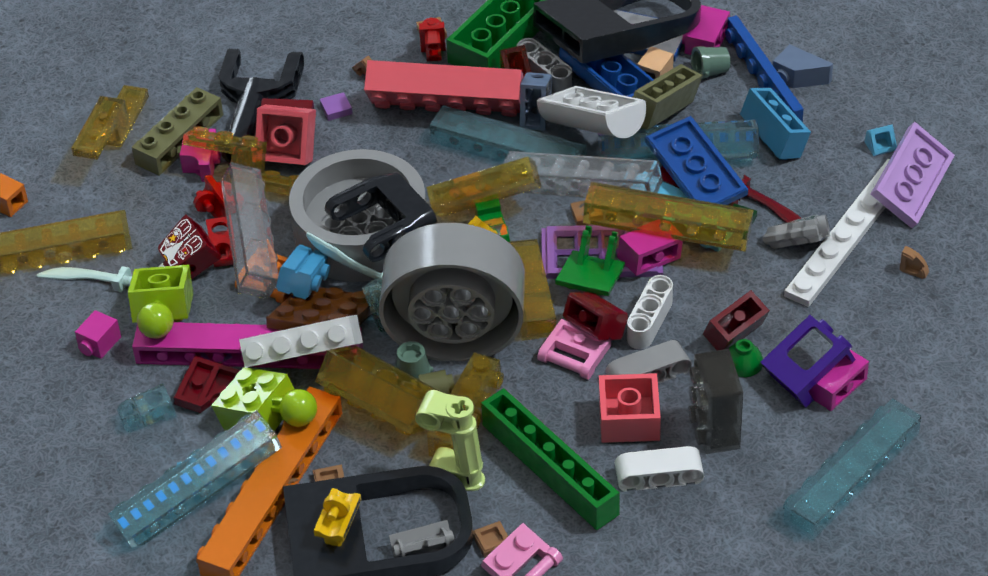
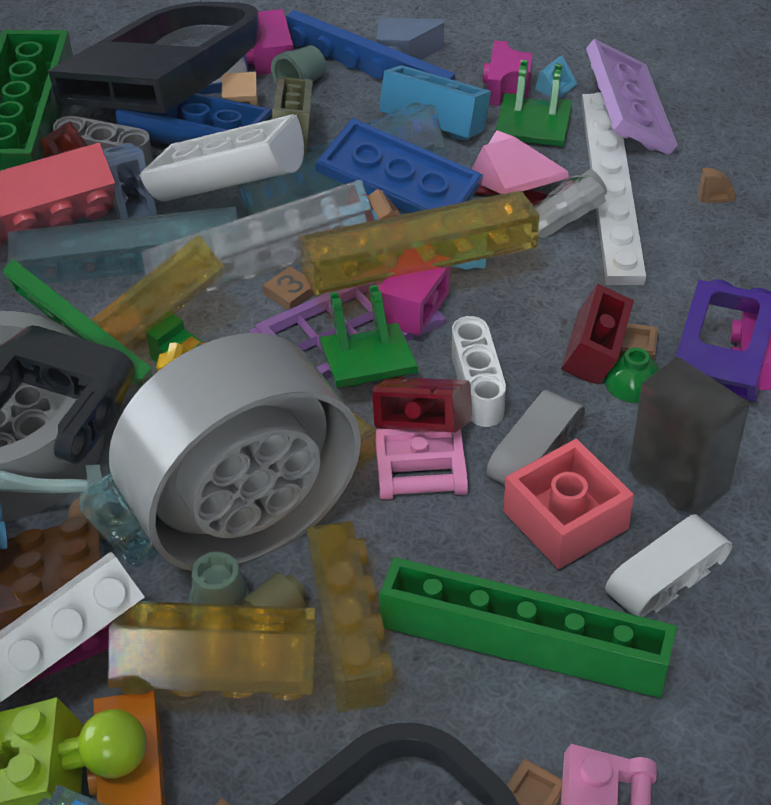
camera: 35 degrees left, 0 degrees up
(423, 176) = (68, 316): none -> green tile
(446, 414) = (393, 636): yellowish green piece -> none
(665, 185) = (382, 205): none -> medium nougat tile
(766, 338) = (641, 337): none -> medium nougat tile
(787, 191) = (514, 166): none -> bright pink slope
(839, 162) = (535, 119): none -> green plate
(846, 122) = (503, 71): none -> dark pink brick

